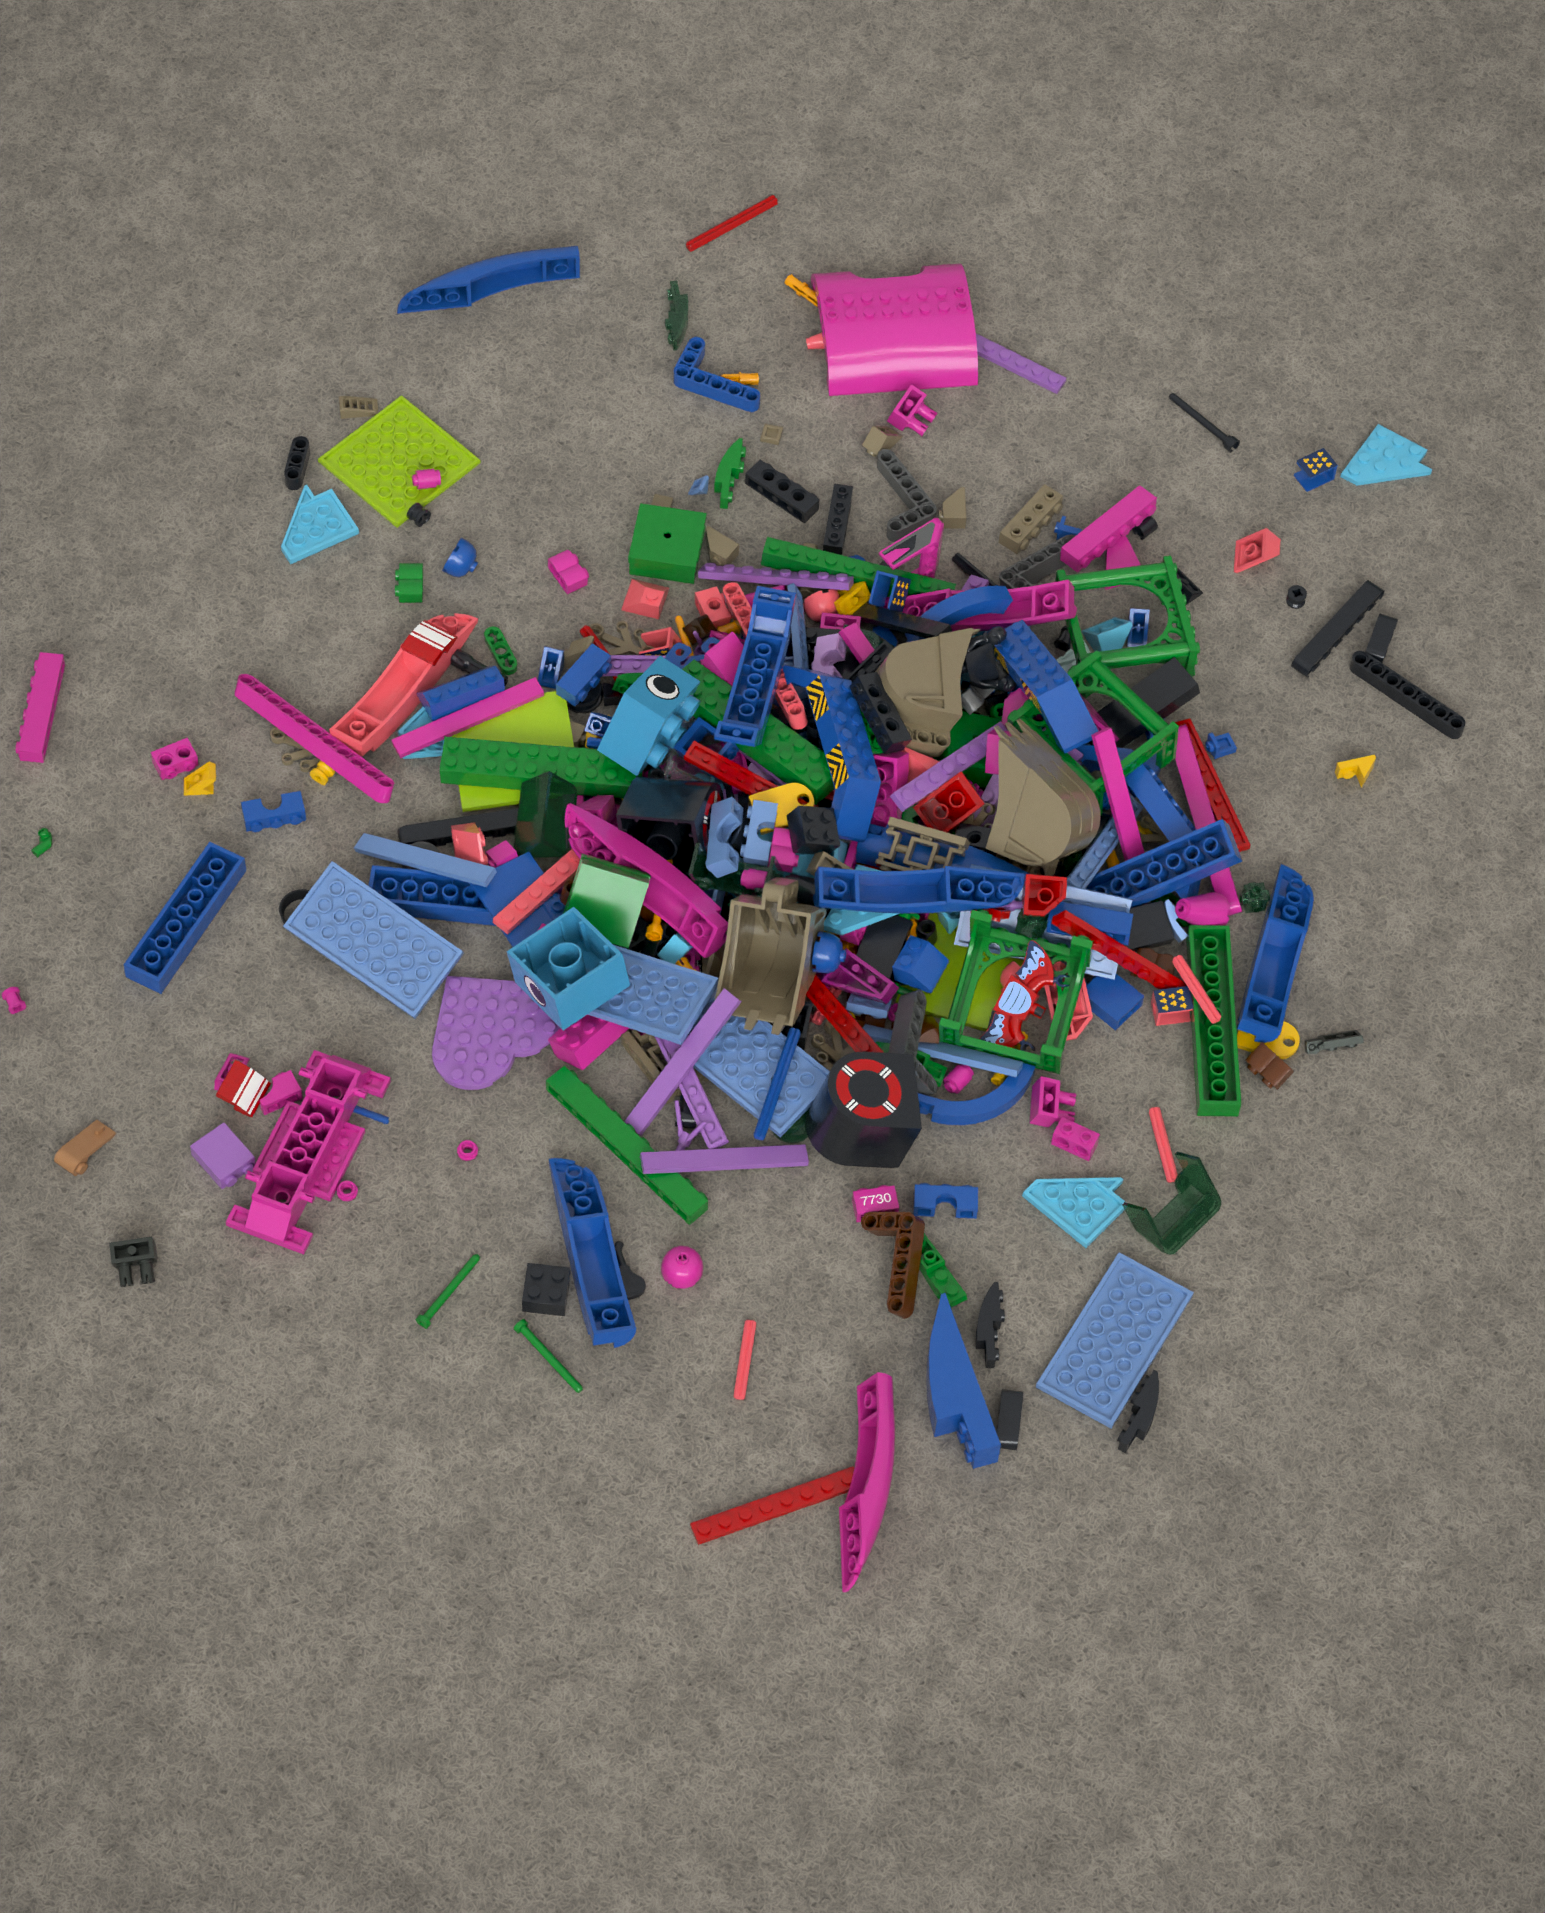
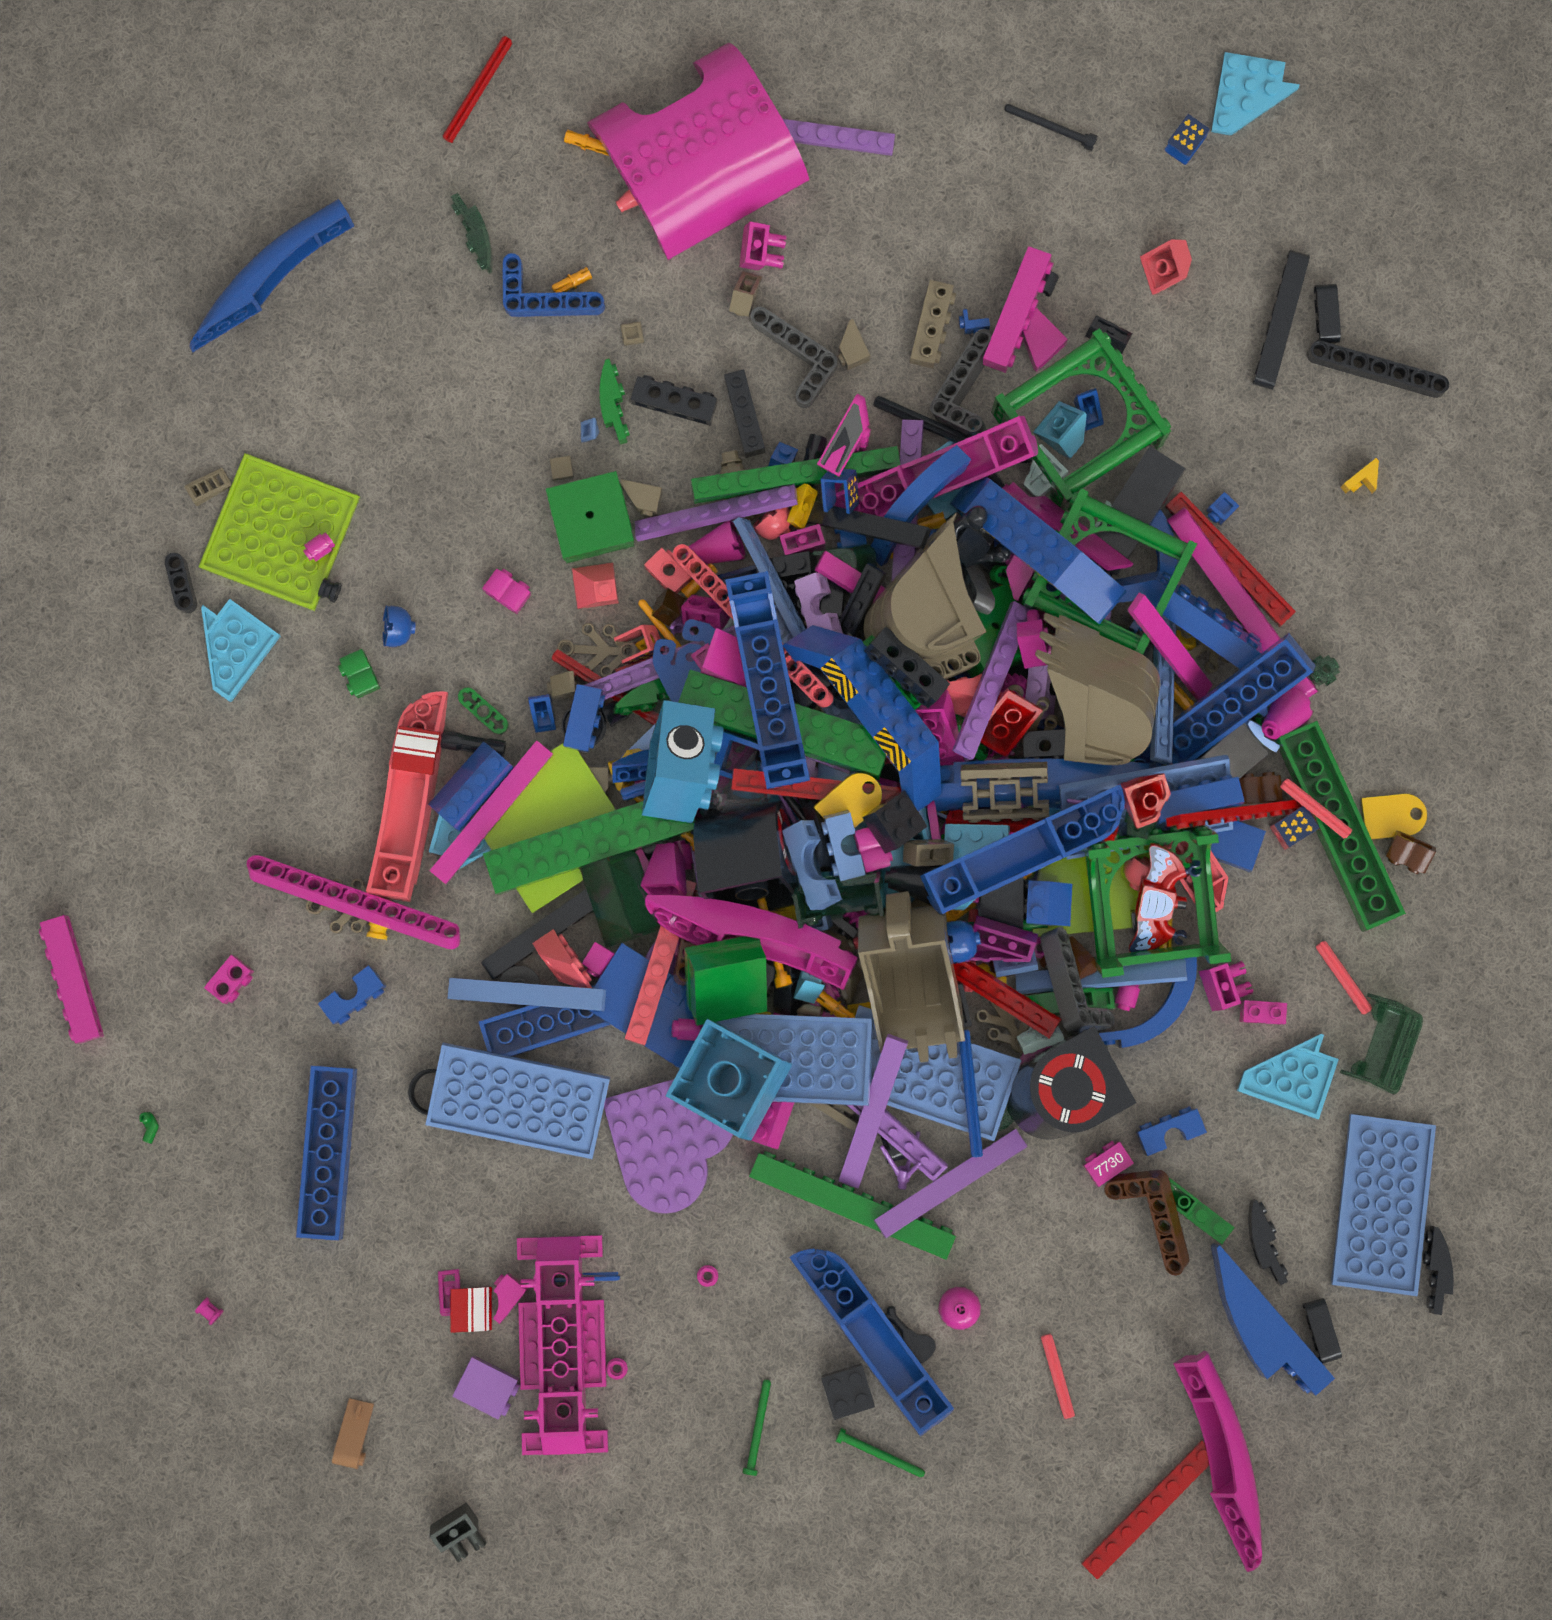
camera: 15 degrees left, 25 degrees up
(201, 780) = (265, 993): yellow slope -> none
(753, 878) = (861, 895): dark pink brick -> none
(1276, 956) = (1371, 730): blue slope -> none
(1298, 601) = (1225, 304): black wheel -> none
(1332, 1041) = (1458, 795): pearl dark grey hinge -> none

